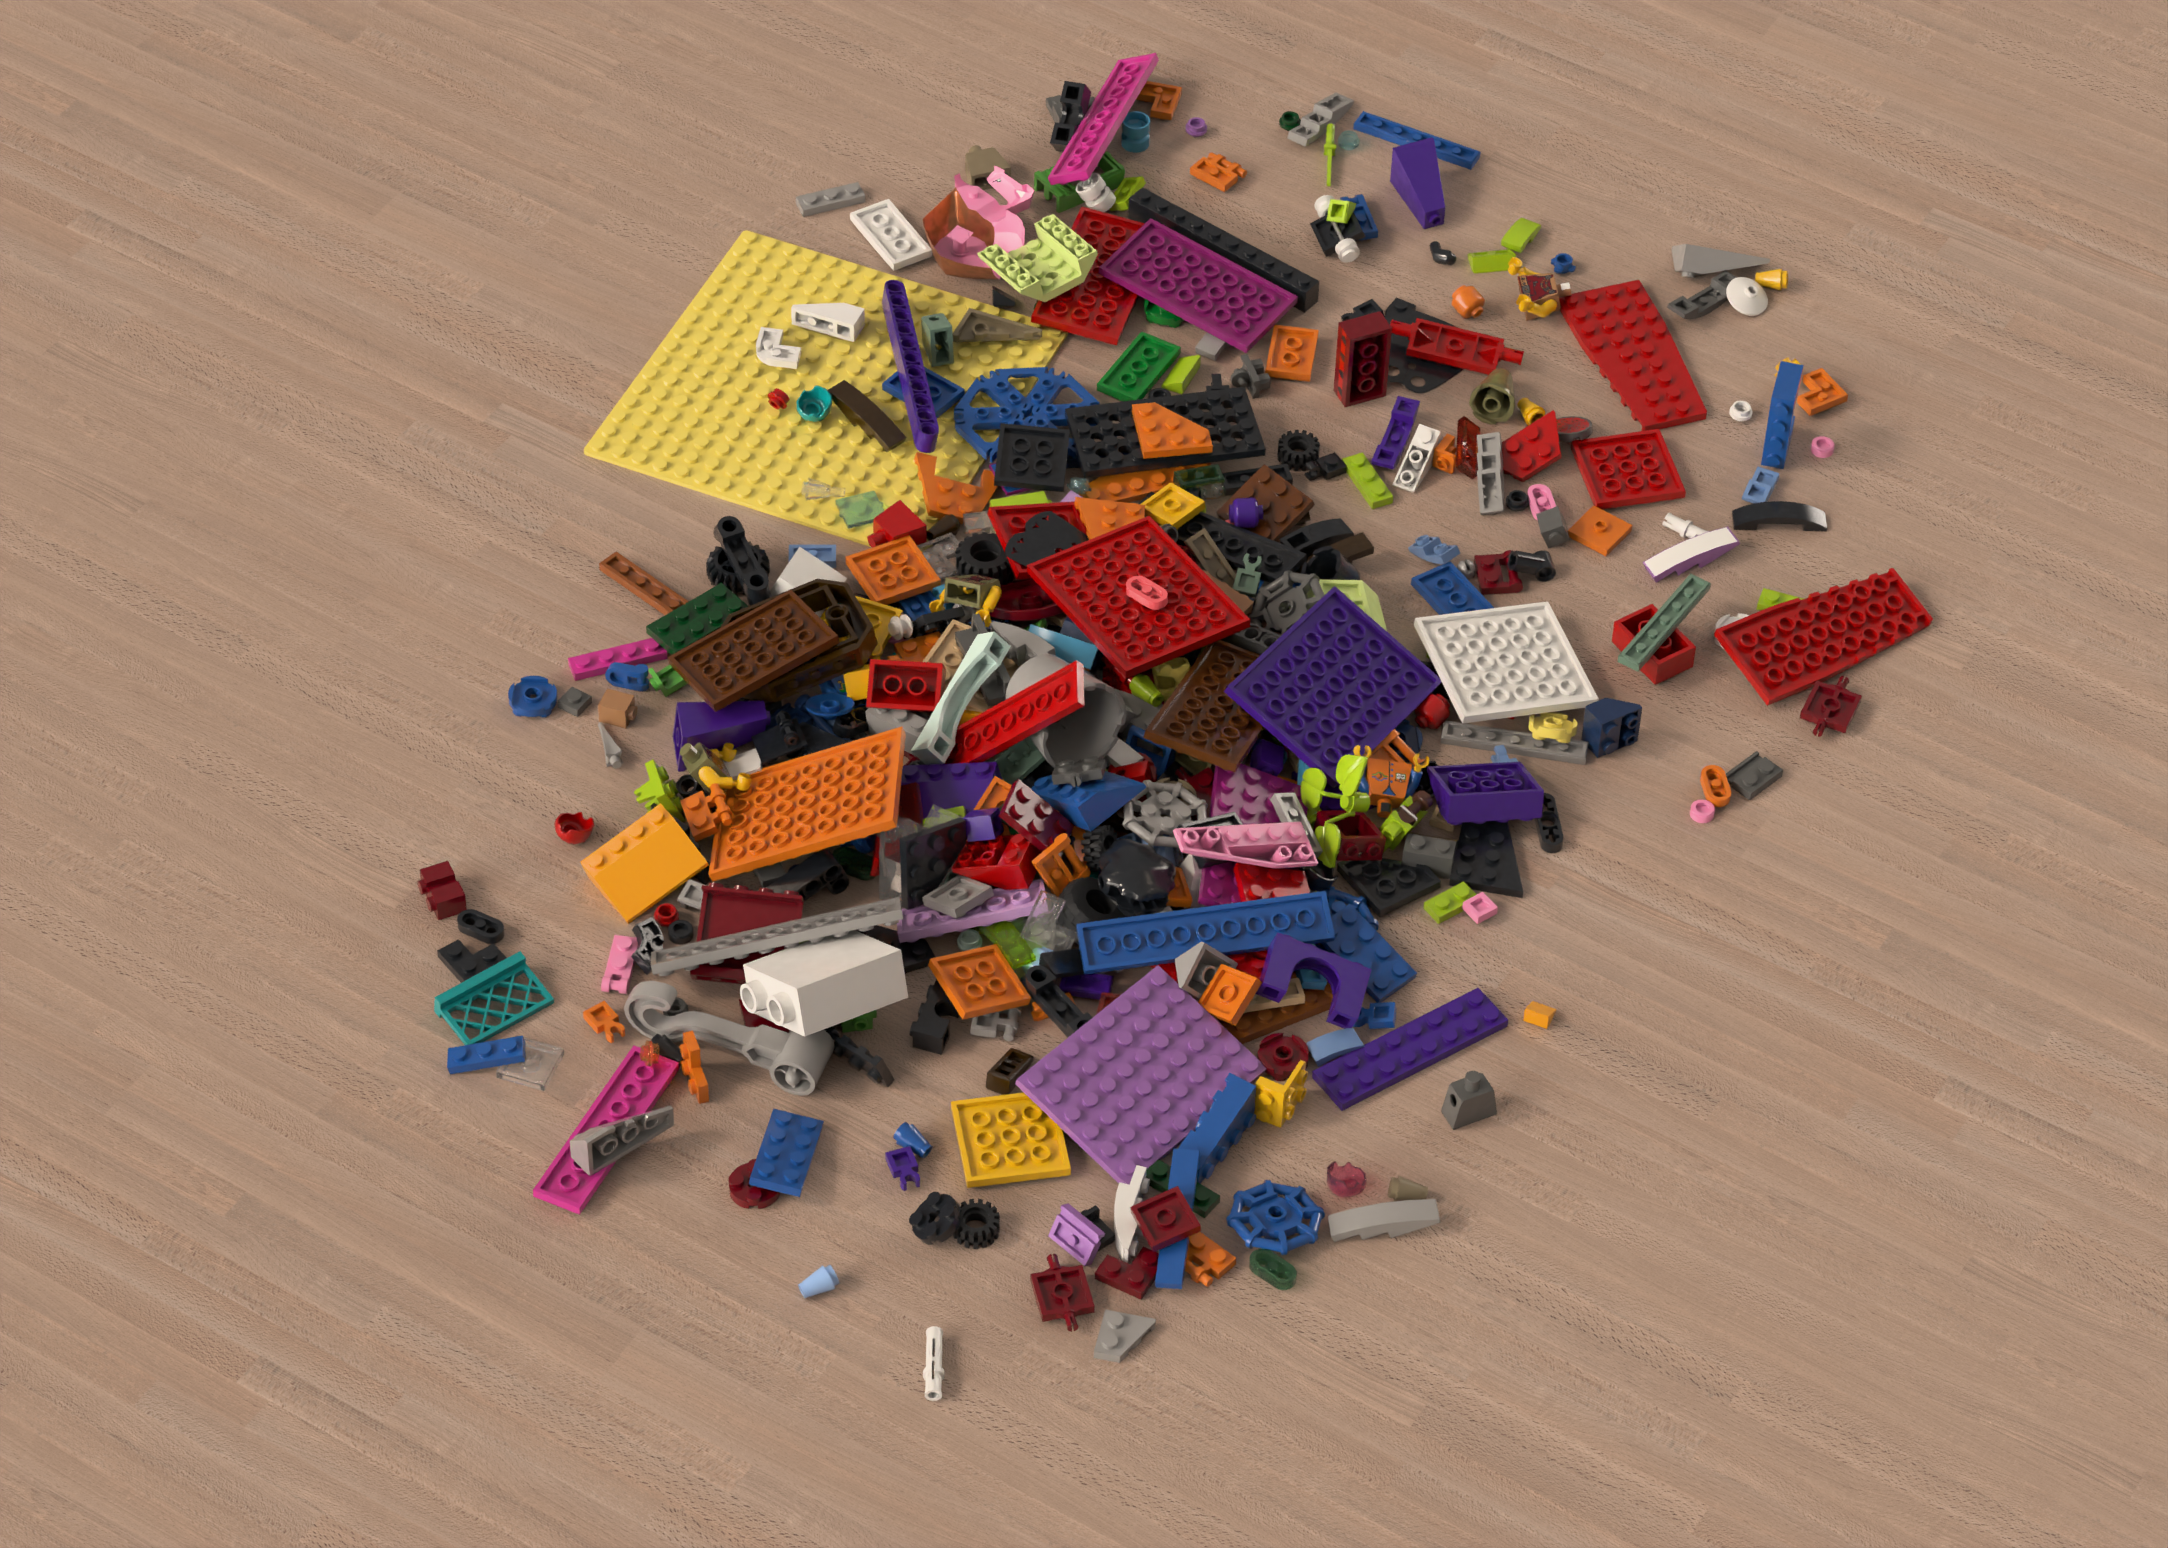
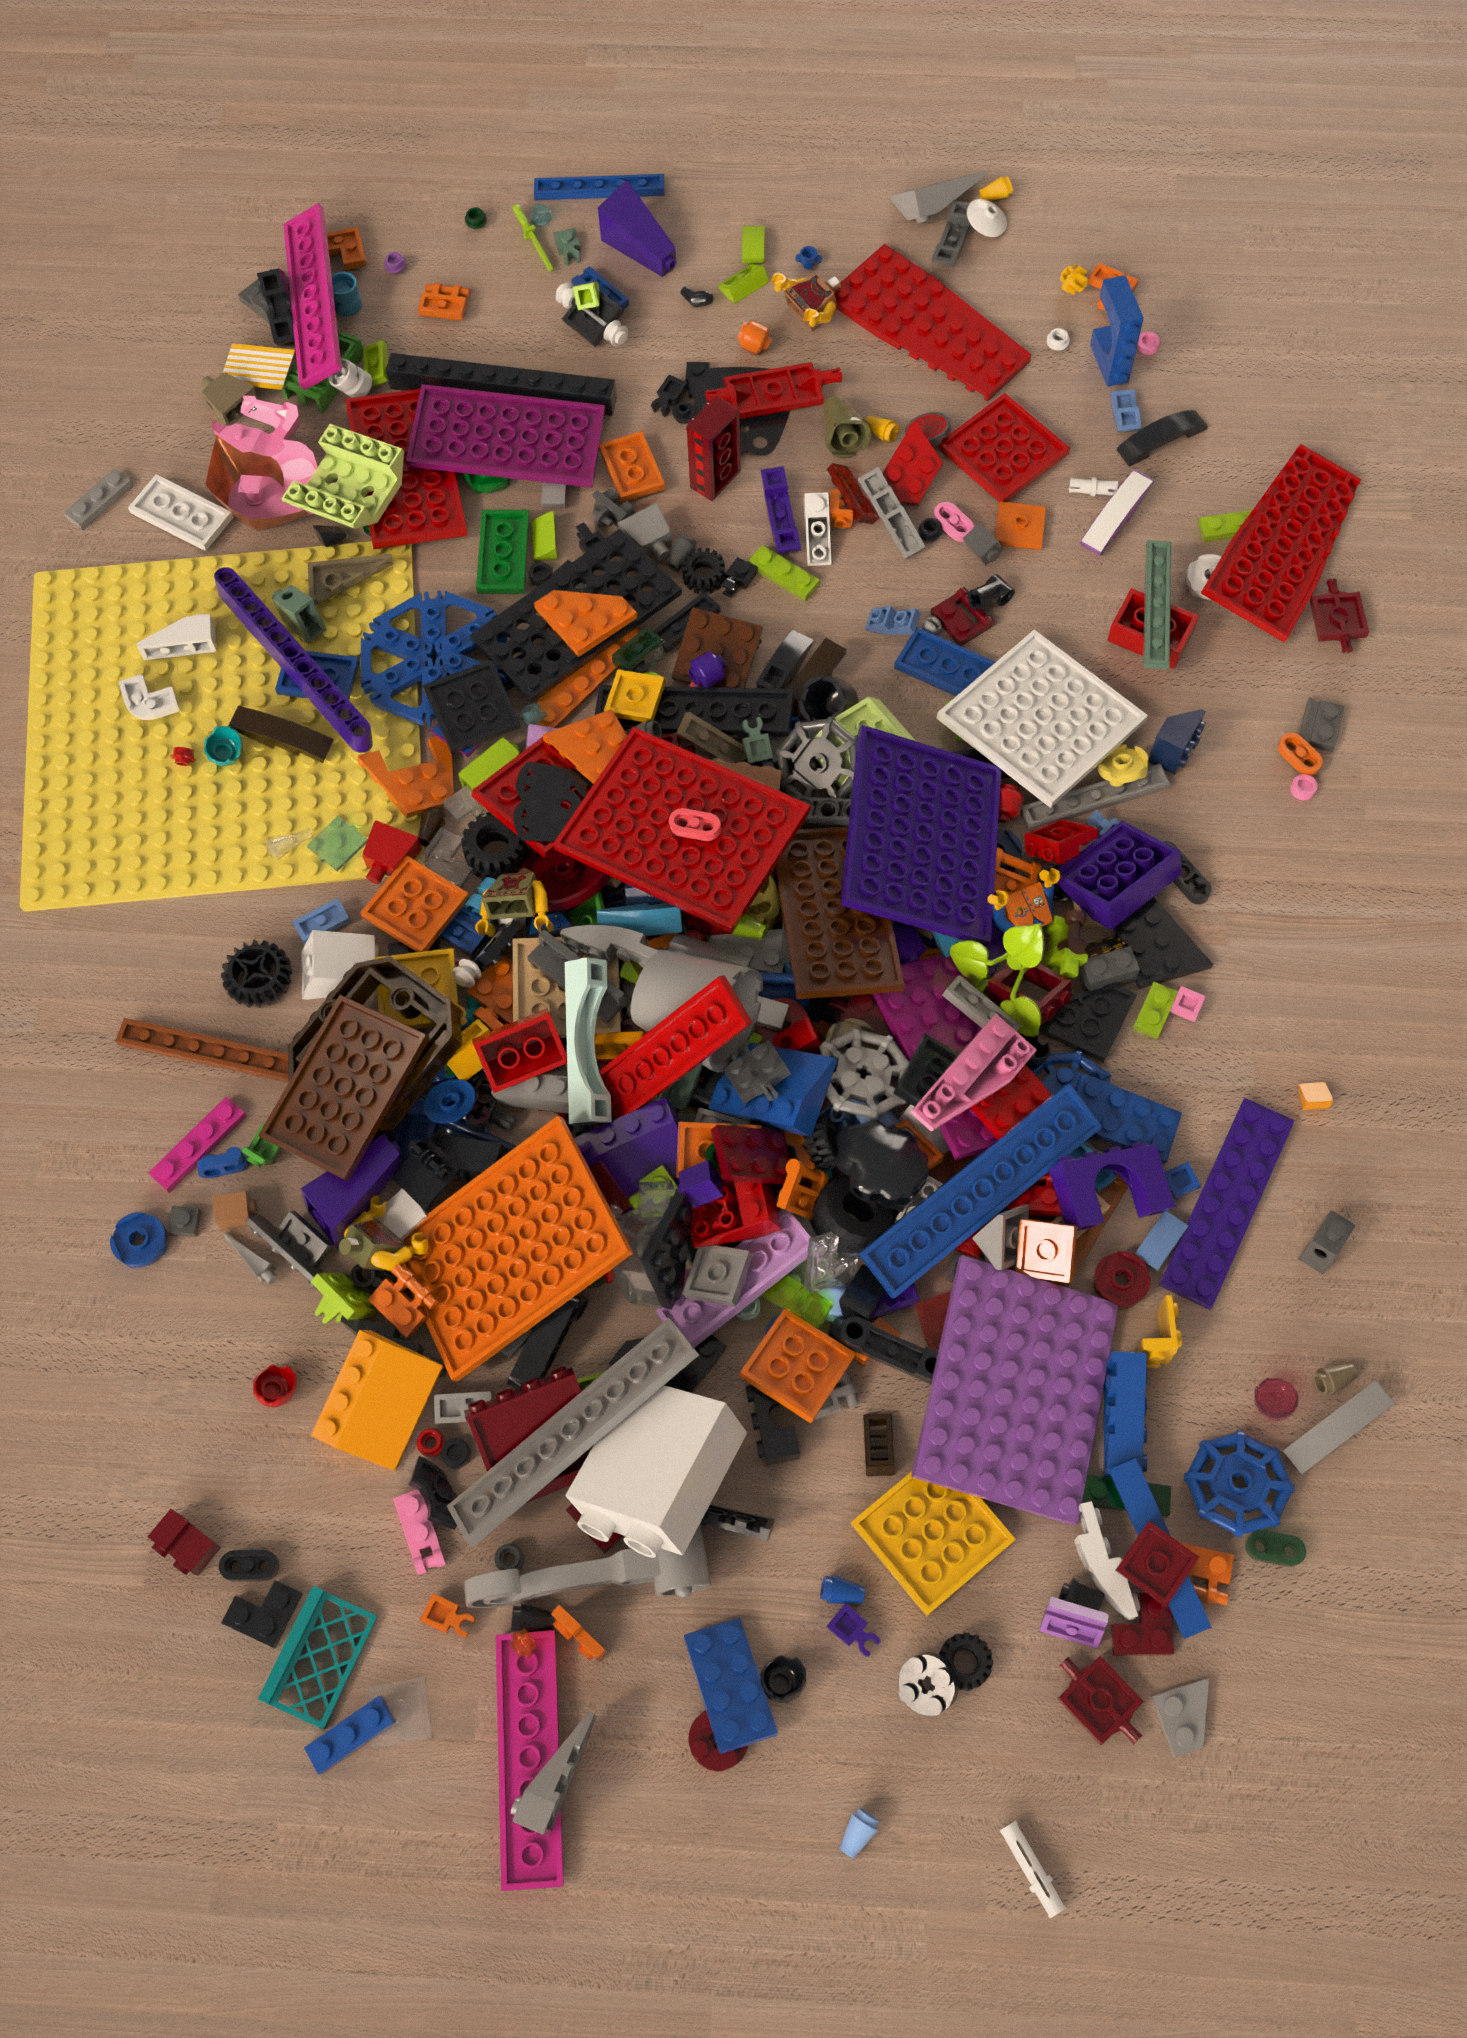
camera: 25 degrees left, 20 degrees up
(649, 745) = (294, 1241): none -> dark grey bracket
(695, 619) = (255, 1062): dark green plate -> none
(742, 559) = (265, 973): black plate -> none
(829, 1169) = (783, 1679): none -> black hair
(1026, 154) = (259, 365): none -> sticker
(1270, 403) = (649, 532): none -> light grey torso
(1290, 424) = (681, 548): none -> dark grey cone
(1324, 112) = (502, 200): light grey slope -> none
(1356, 172) = (567, 244): none -> sand green plate
(1452, 751) = (1059, 840): none -> red plate

